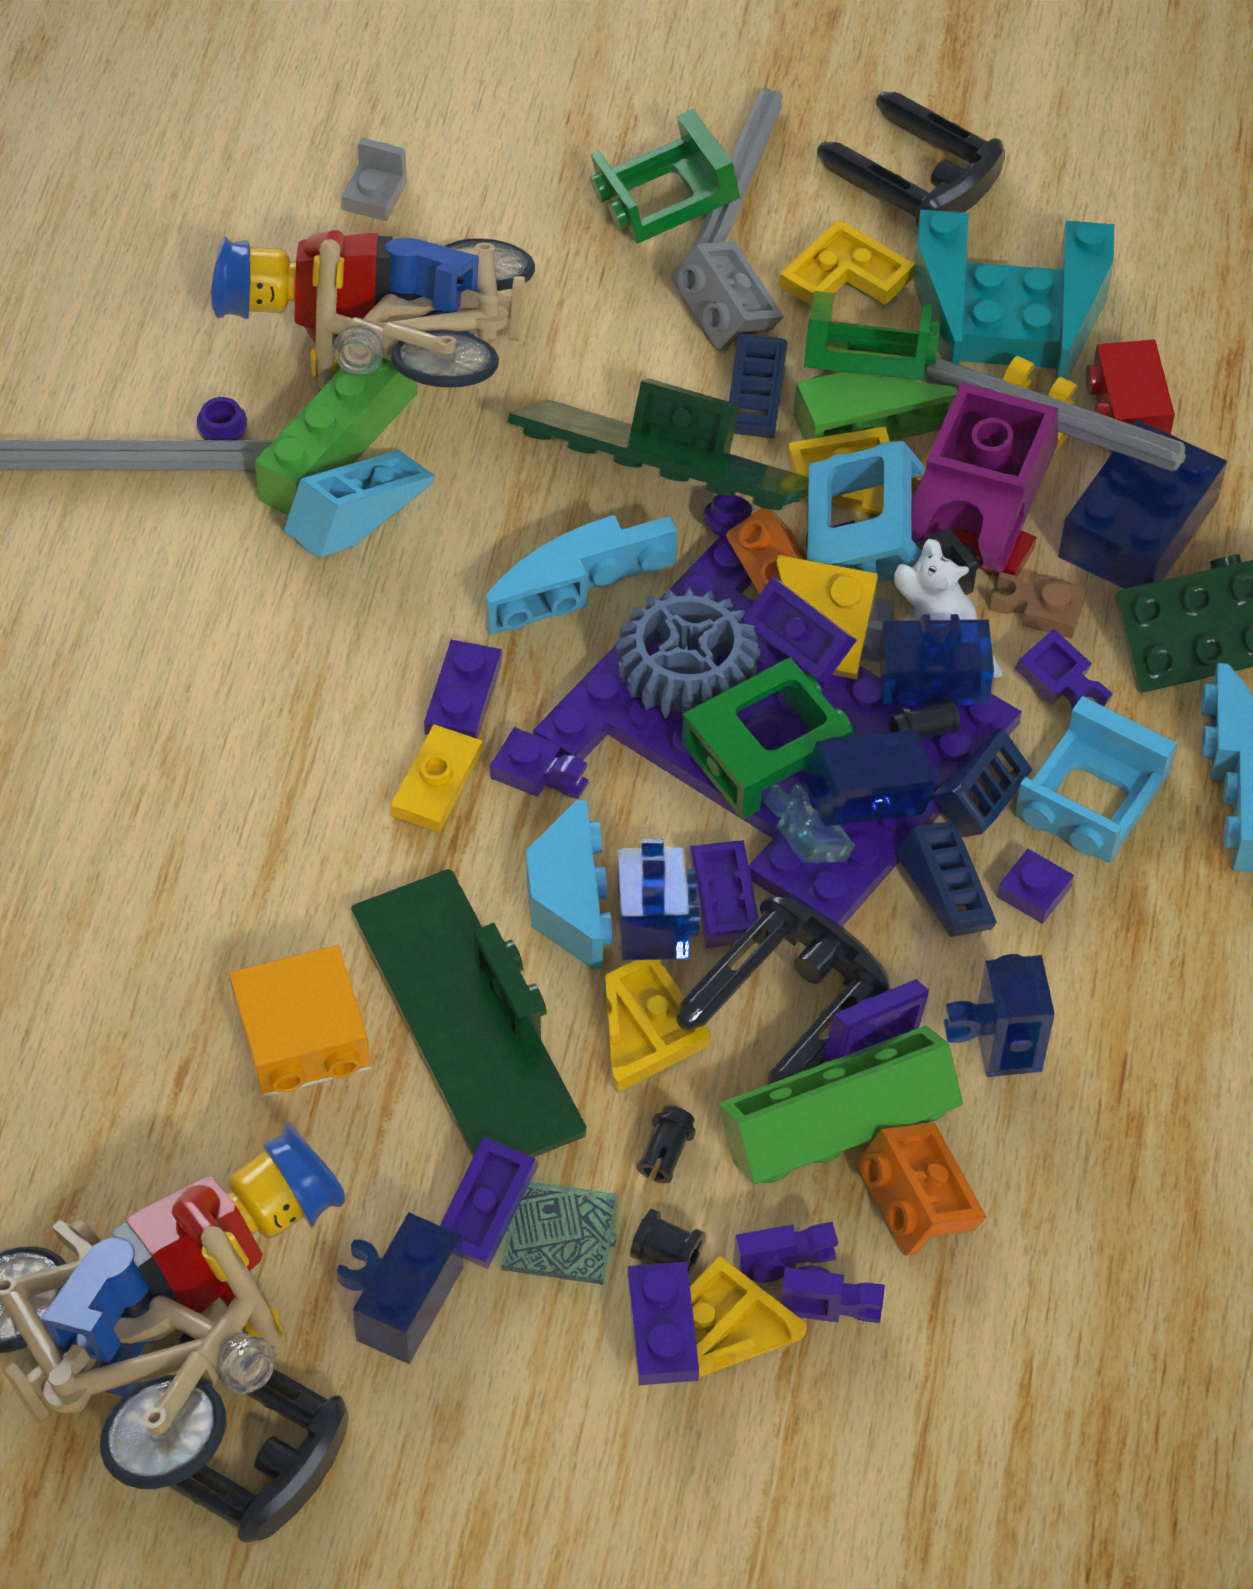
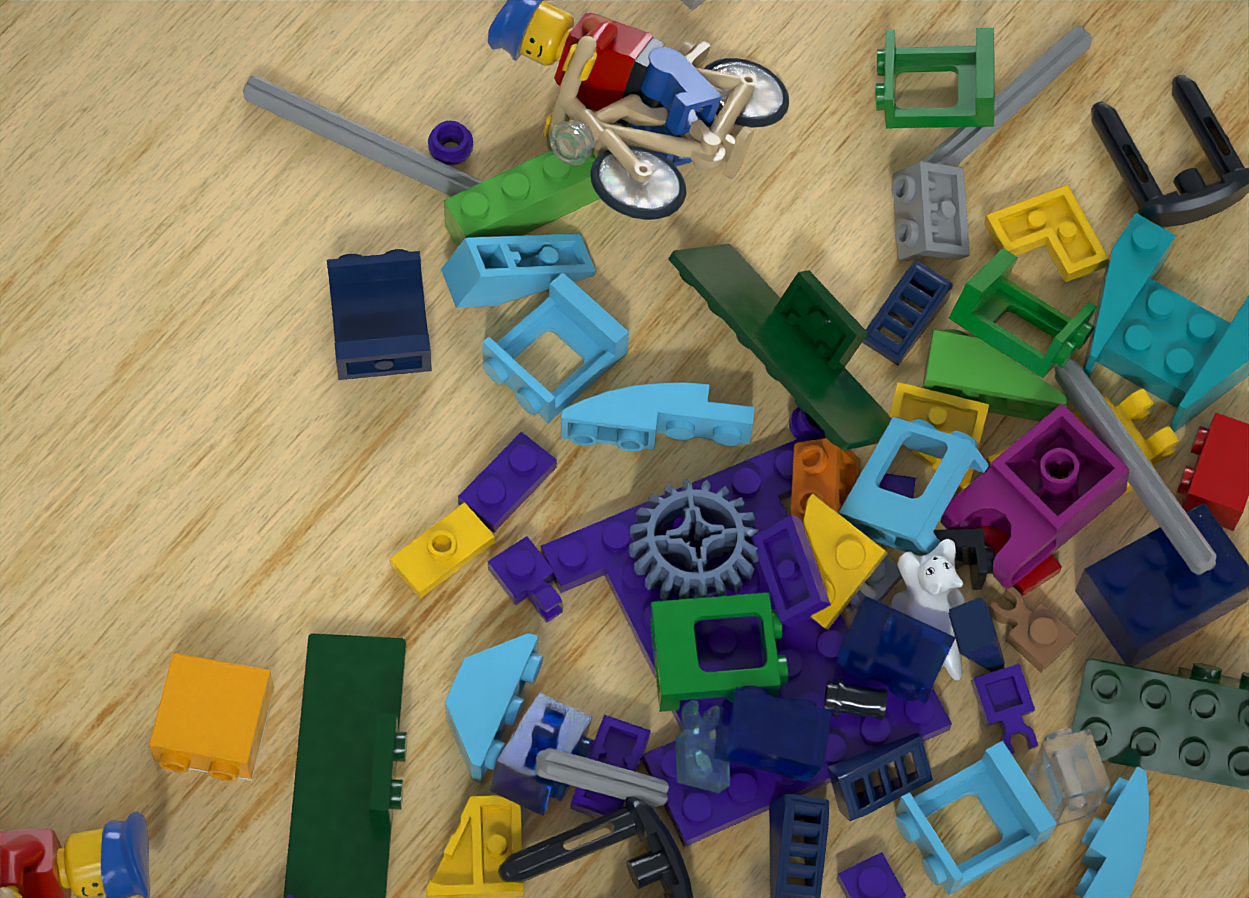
camera: 25 degrees right, 10 degrees up
(243, 598) = (379, 314): none -> dark blue panel
(448, 523) = (580, 325): none -> medium azure window
(725, 889) = (600, 777): none -> light grey axle
(1007, 609) = (977, 634): none -> dark blue slope
(1165, 692) = (1069, 775): none -> clear brick

